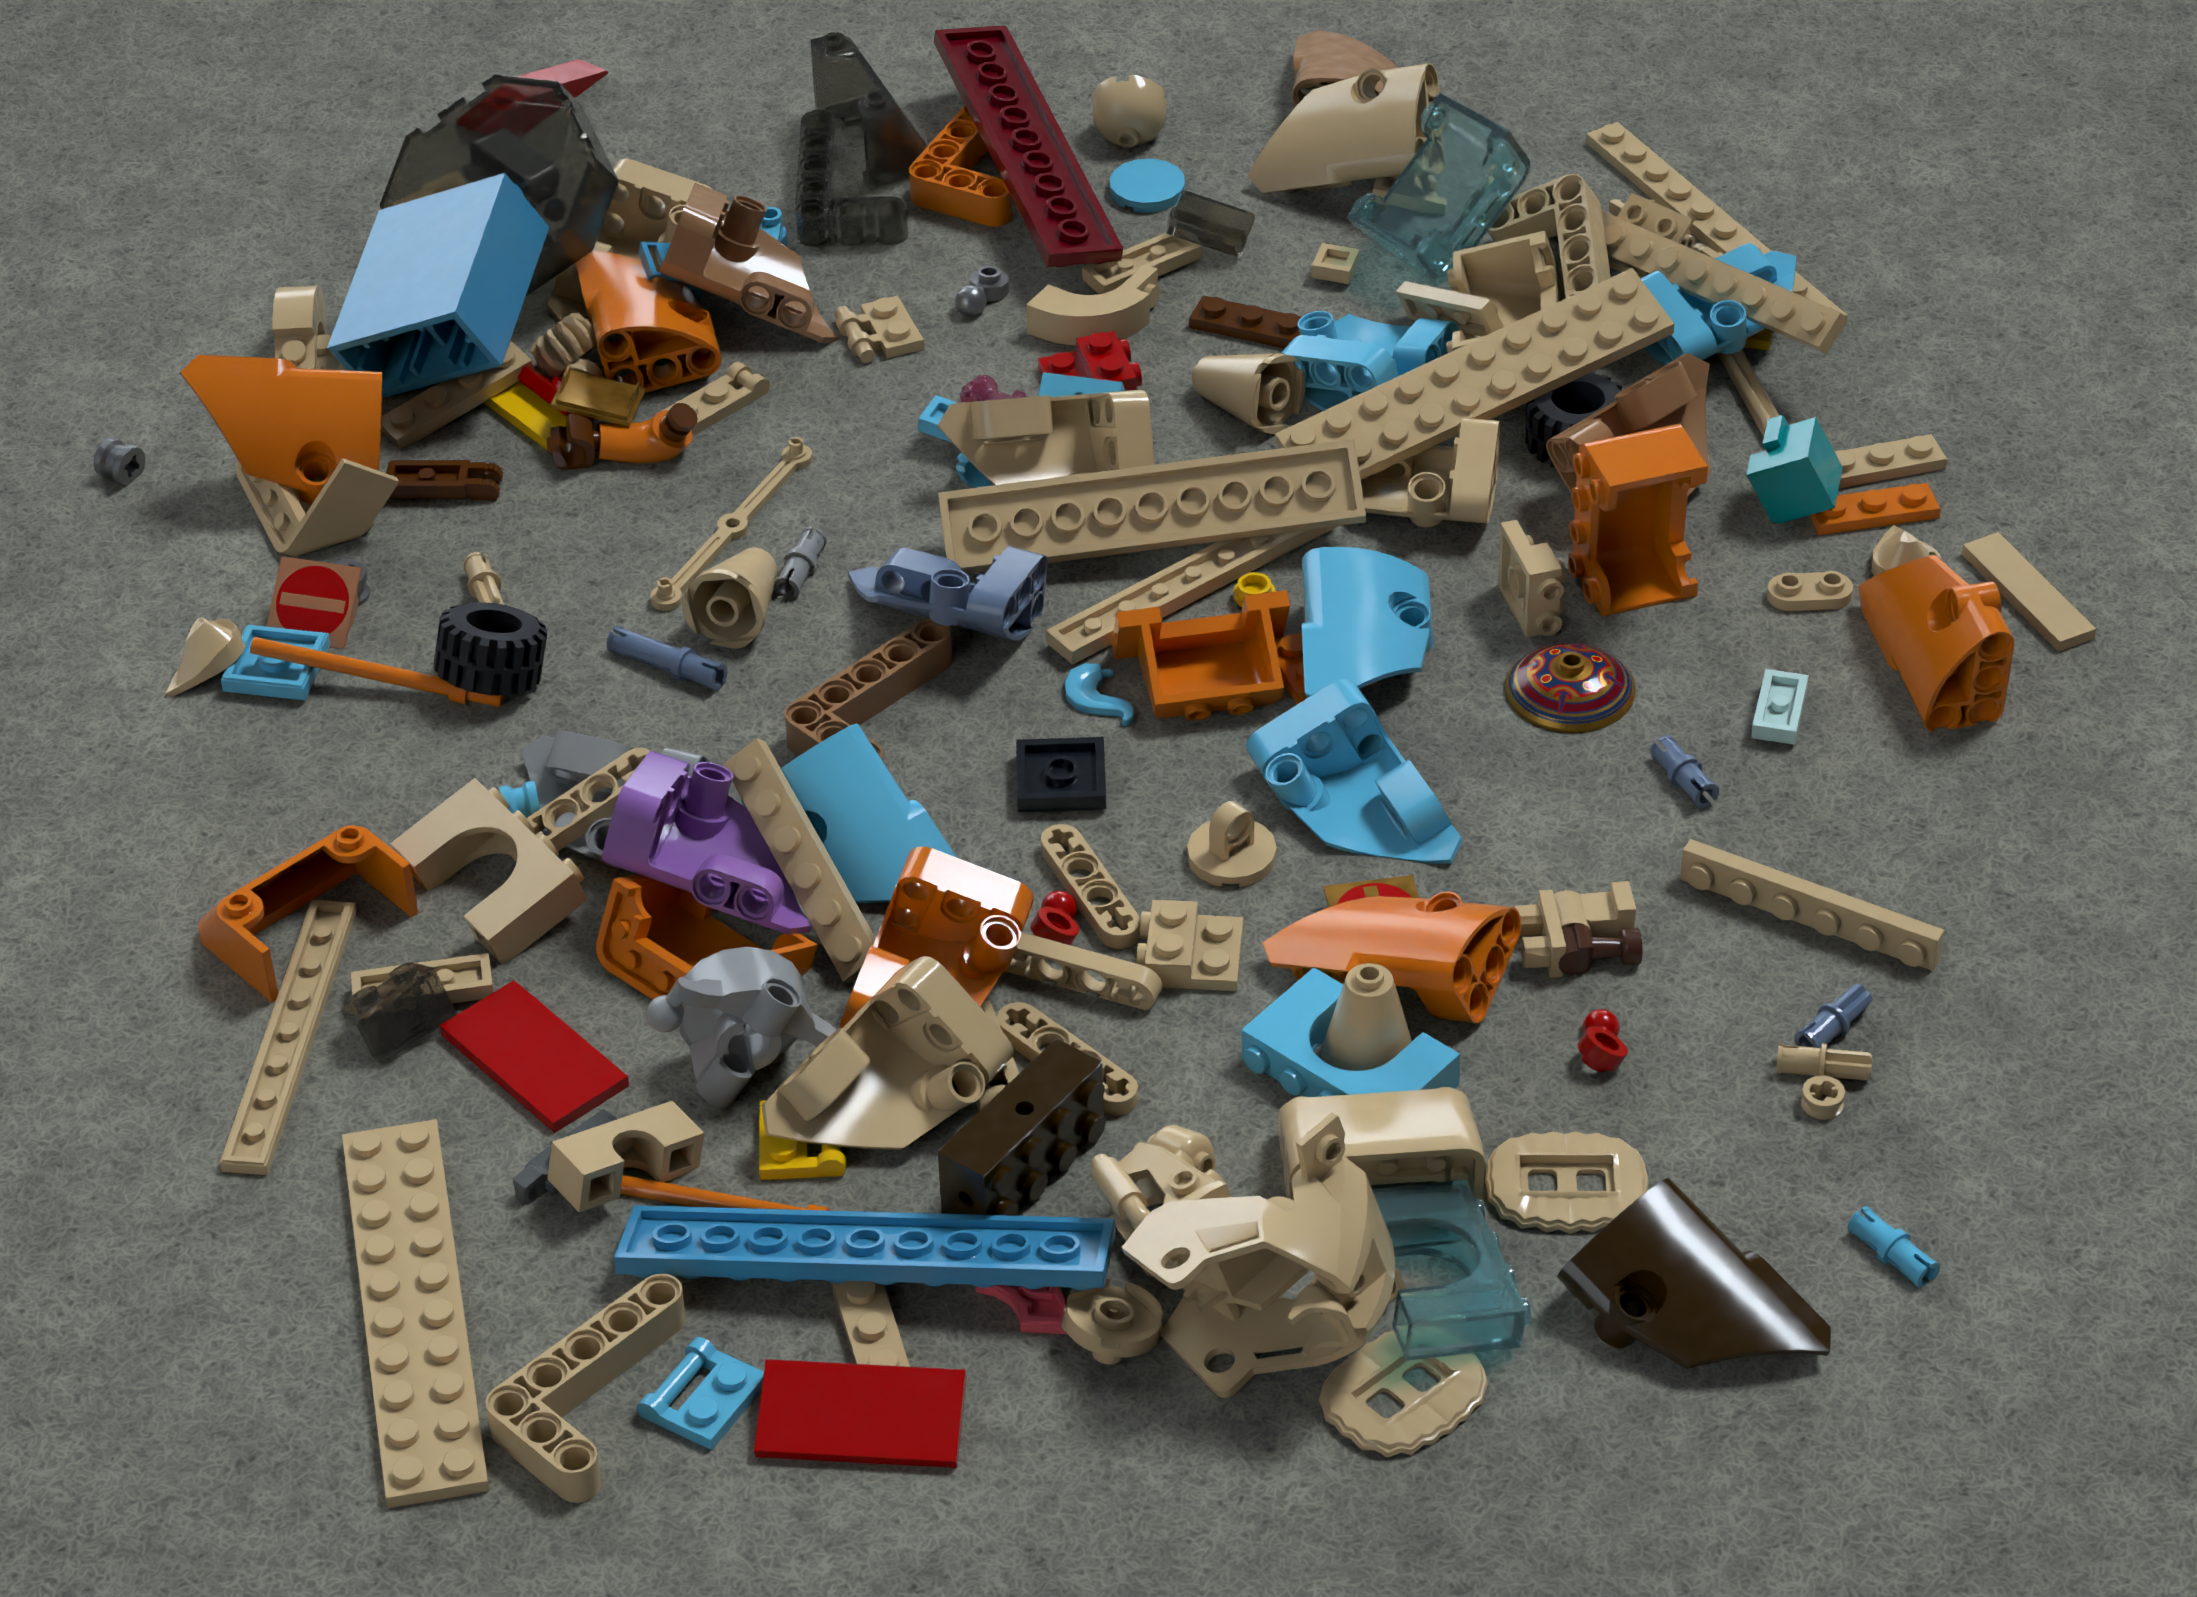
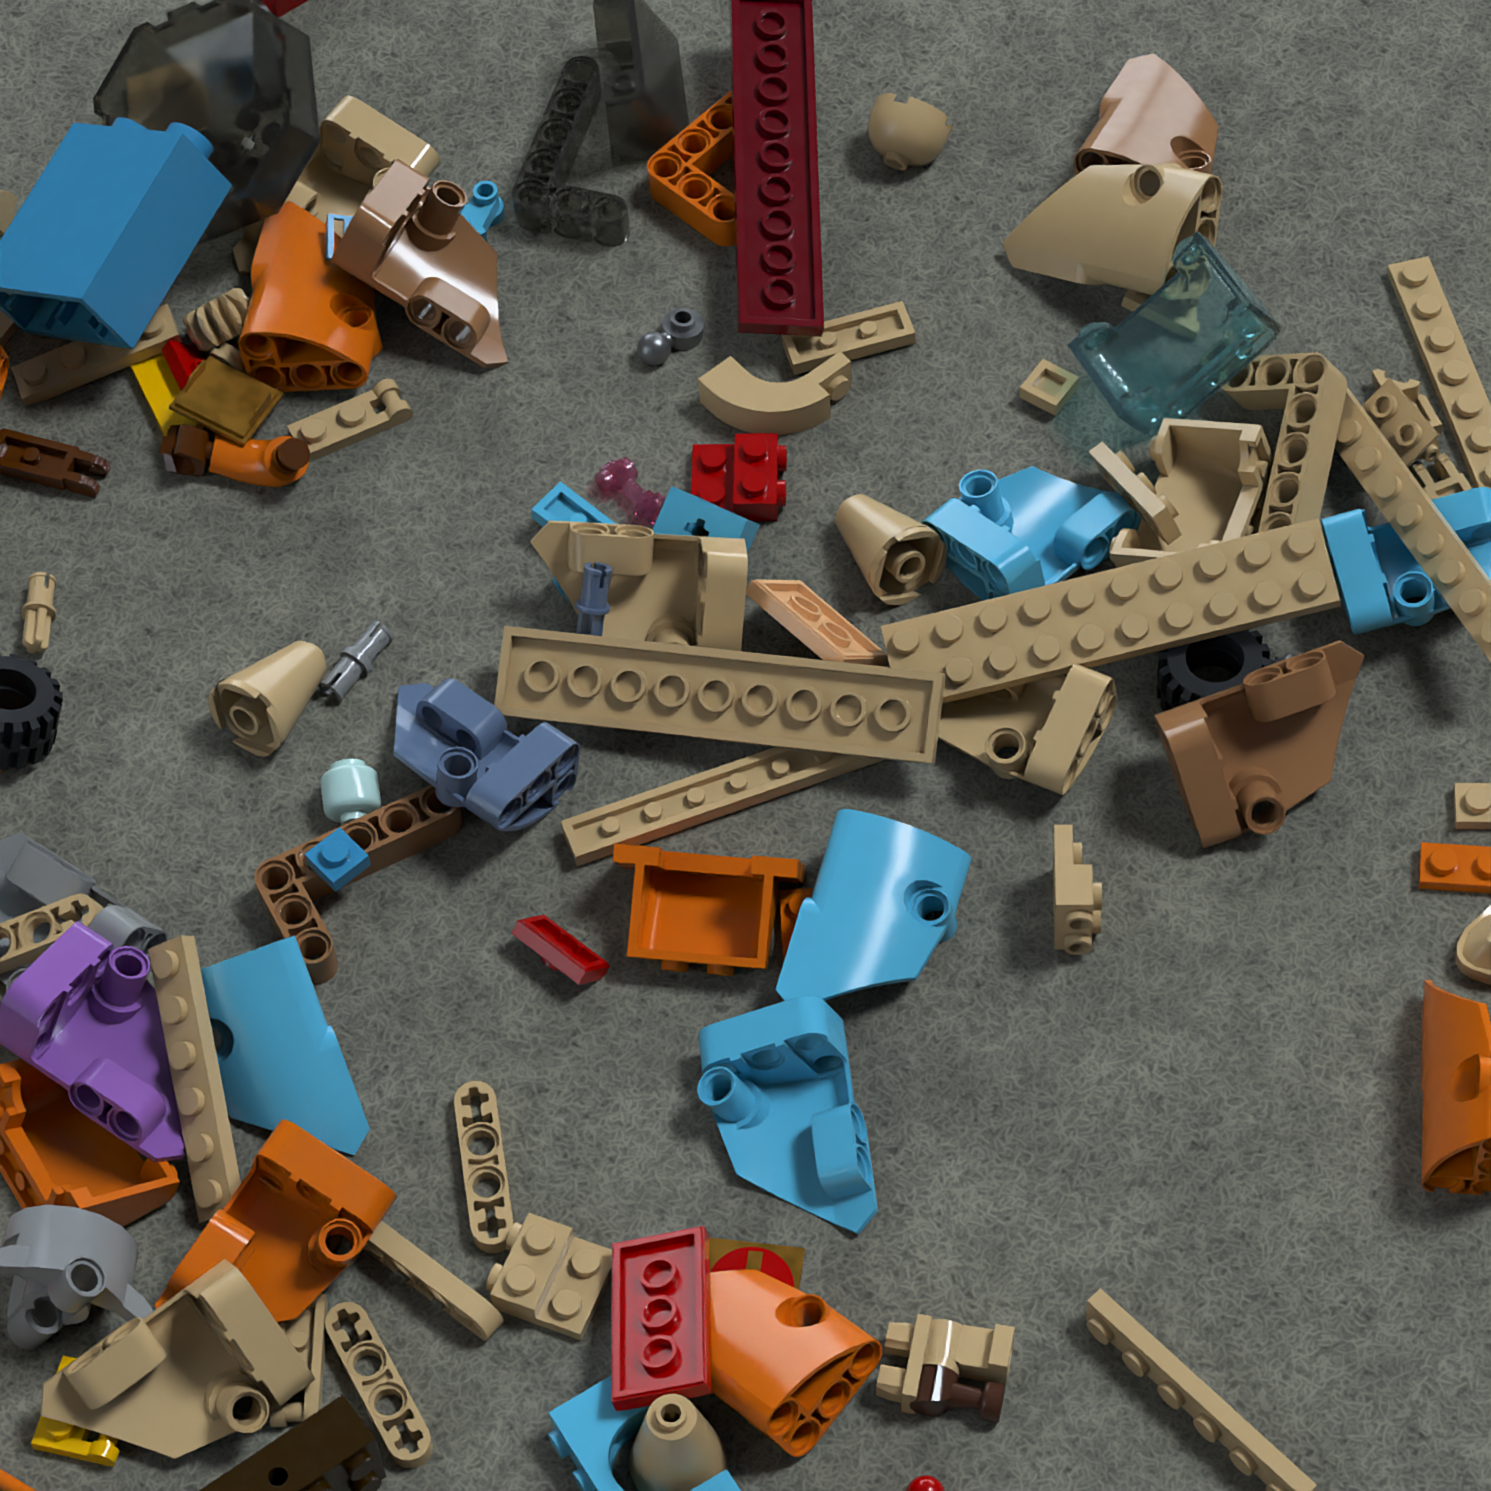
camera: 20 degrees right, 15 degrees up
(669, 591) = (404, 516): tan piece -> none
(678, 661) = (191, 766): sand blue pin -> none
(839, 644) = (349, 790): none -> light aqua head
(859, 686) = (337, 859): none -> dark azure plate
(890, 328) = (563, 363): tan plate -> none
(1012, 453) = (593, 599): none -> sand blue axle
(1056, 918) = (442, 1187): red plate -> none
(1060, 774) = (507, 1013): black plate -> none
(1082, 693) = (573, 907): medium azure piece -> none
(1088, 721) = (560, 949): none -> red plate
(1147, 185) = (897, 227): medium azure tile -> none
(1193, 441) = (815, 622): none -> light nougat tile
(1210, 223) = (928, 313): clear smoke panel -> none
(1231, 848) = (642, 1159): tan tile -> none
(1244, 321) = (928, 443): reddish brown plate -> none
(1251, 584) = (794, 819): yellow plate -> none
(1310, 936) = (660, 1318): none -> red tile
(1570, 688) = (1069, 1053): dish -> none
(1633, 518) = (1198, 856): orange windscreen -> none
(1684, 771) = (1142, 1181): sand blue pin -> none
(1749, 388) = (1424, 684): tan axle -> none
(1780, 706) = (1277, 1120): light aqua plate -> none
(1796, 470) = (1413, 813): teal plate -> none
(1810, 591) = (1375, 967): tan plate -> none

